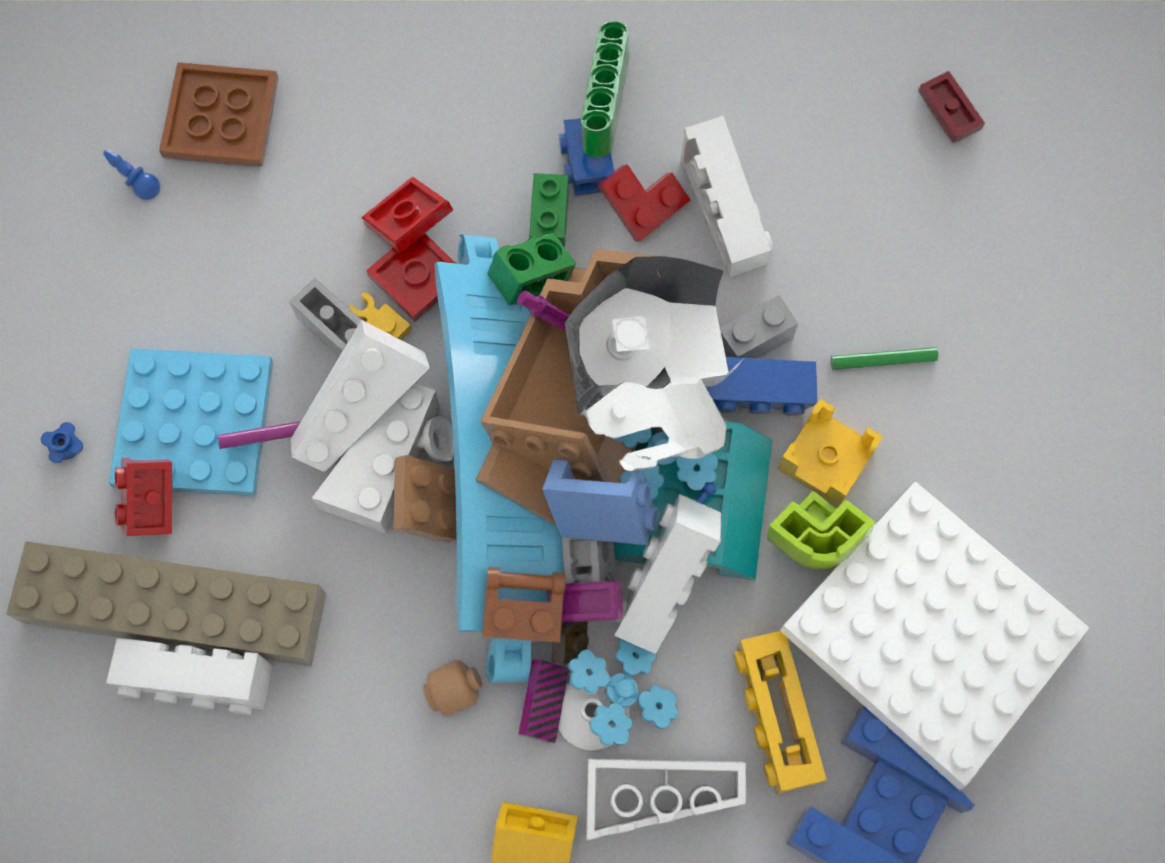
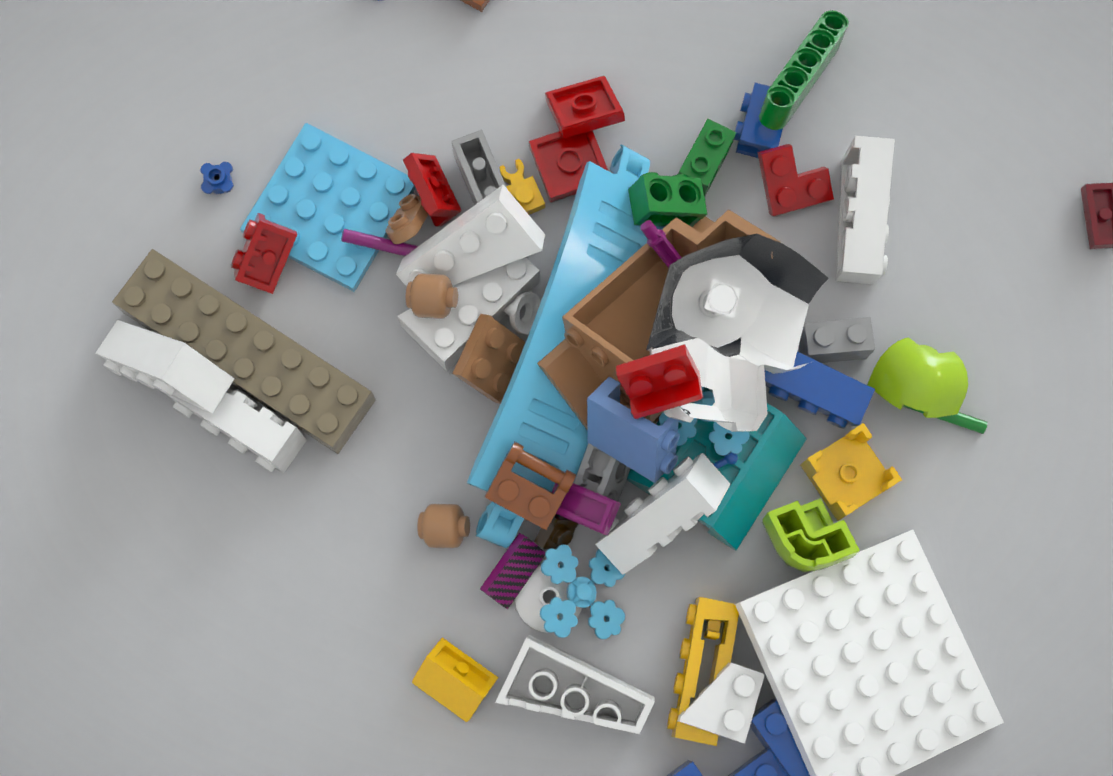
camera: 20 degrees right, 5 degrees up
(90, 652) = (164, 365): none -> white wedge
(279, 397) = (406, 220): none -> medium nougat plate
(289, 357) = (432, 187): none -> red bracket
(338, 461) = (431, 296): none -> medium nougat head
(608, 438) = (660, 381): none -> red bracket
(817, 733) = (726, 703): none -> white wing
(854, 332) = (920, 379): none -> lime brick

